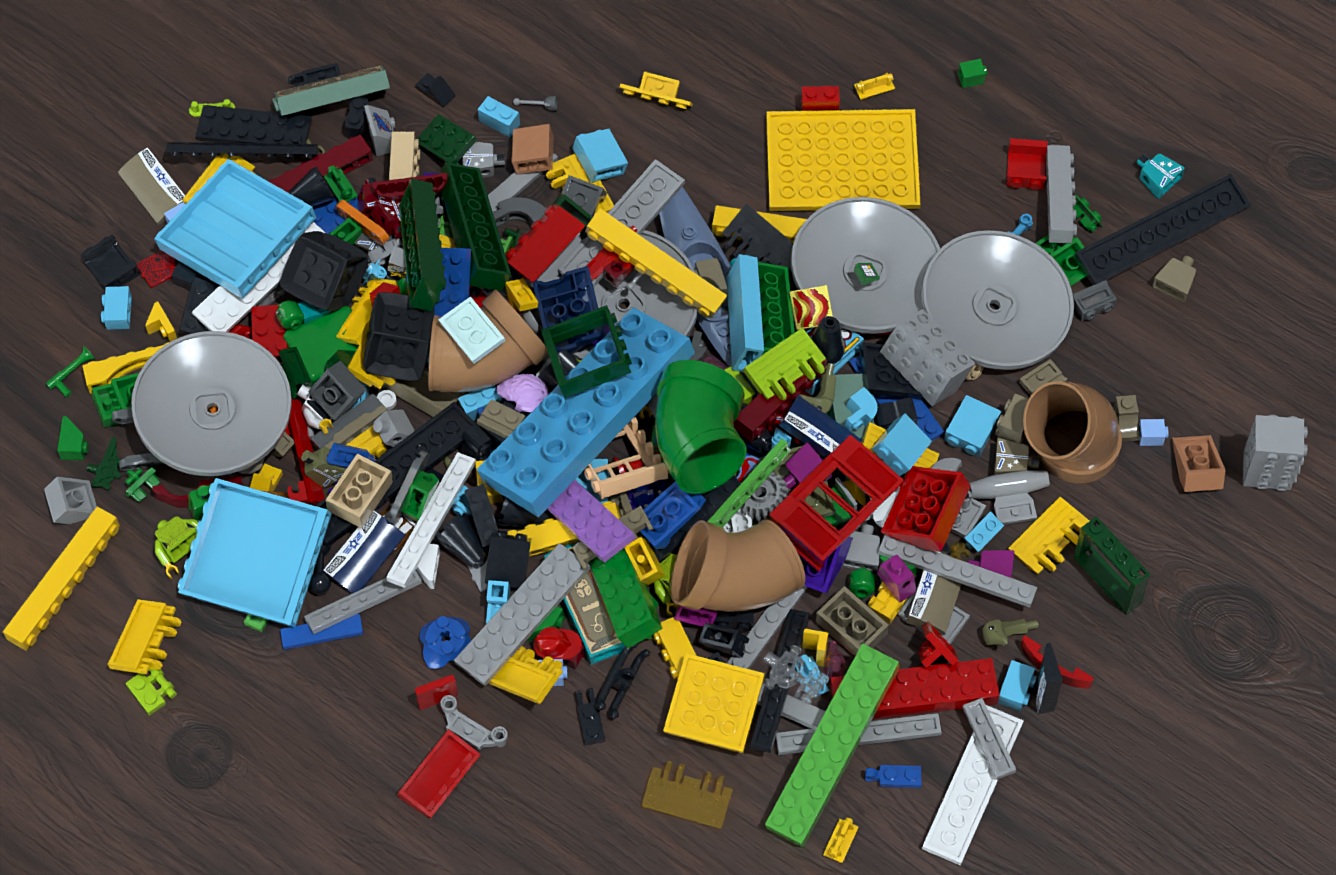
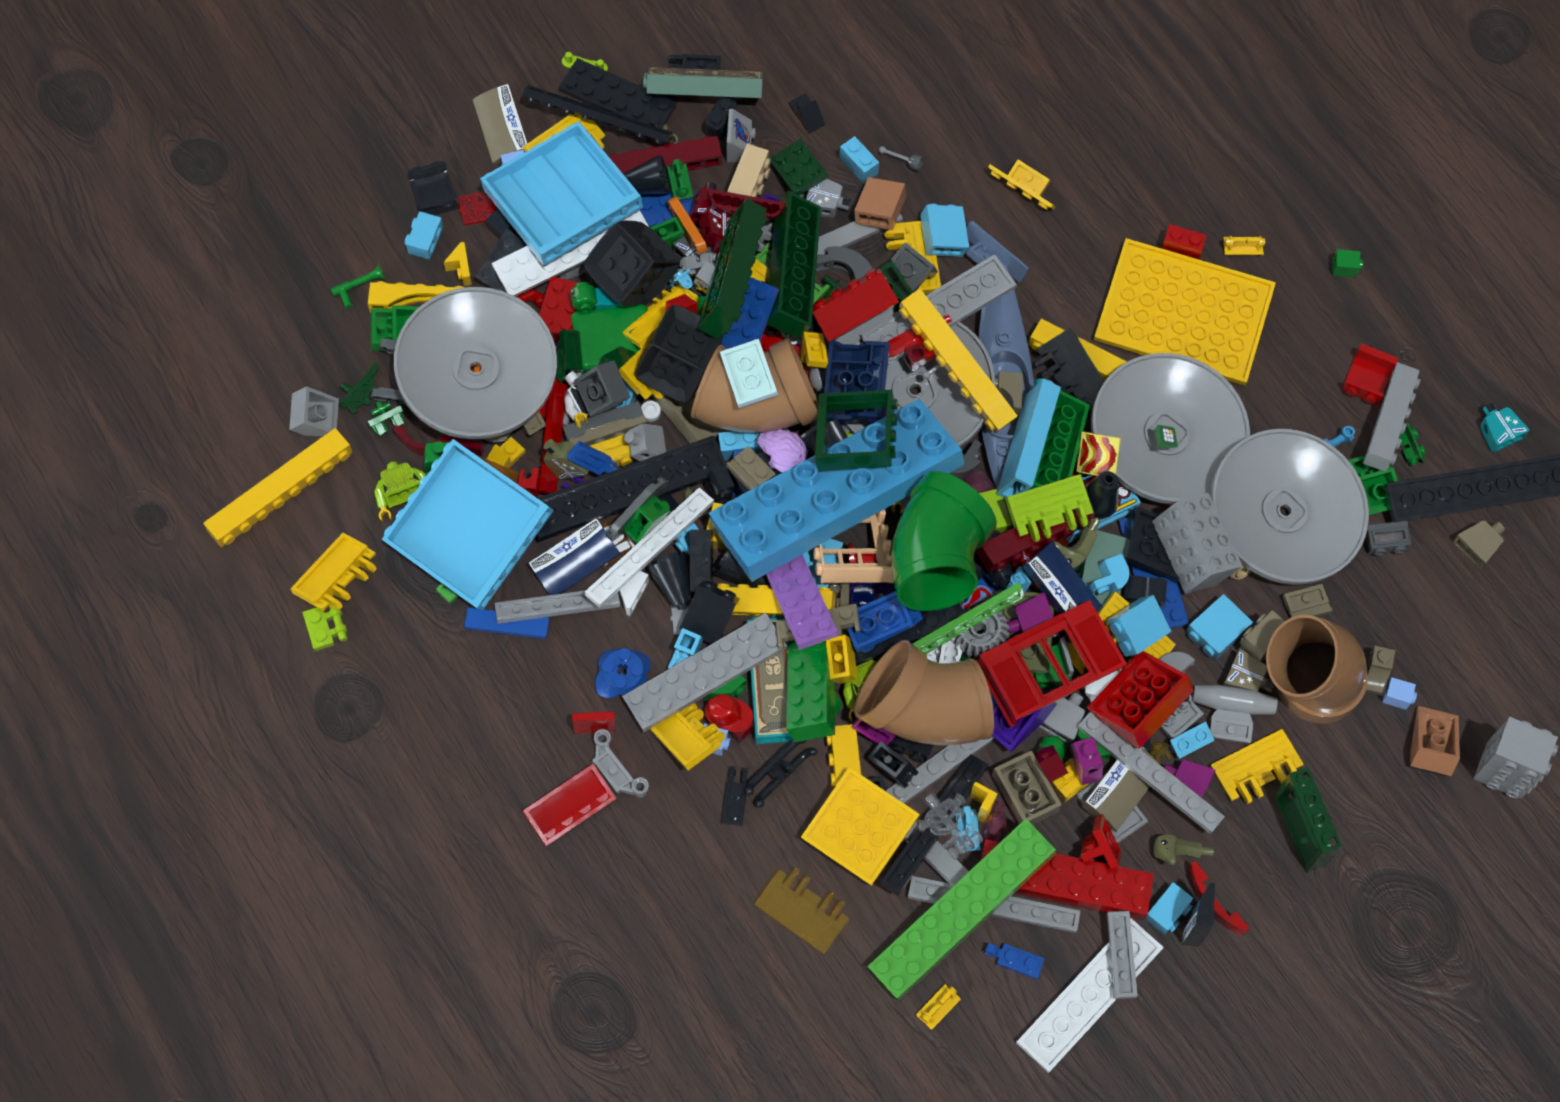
camera: 15 degrees right, 5 degrees up
(71, 442) = (334, 355): green slope -> none
(320, 582) = (522, 573): black piece -> none
(359, 490) = (588, 496): tan brick -> none
(643, 157) = (986, 246): none -> sand blue bracket
(866, 591) = (1051, 763): none -> dark red brick

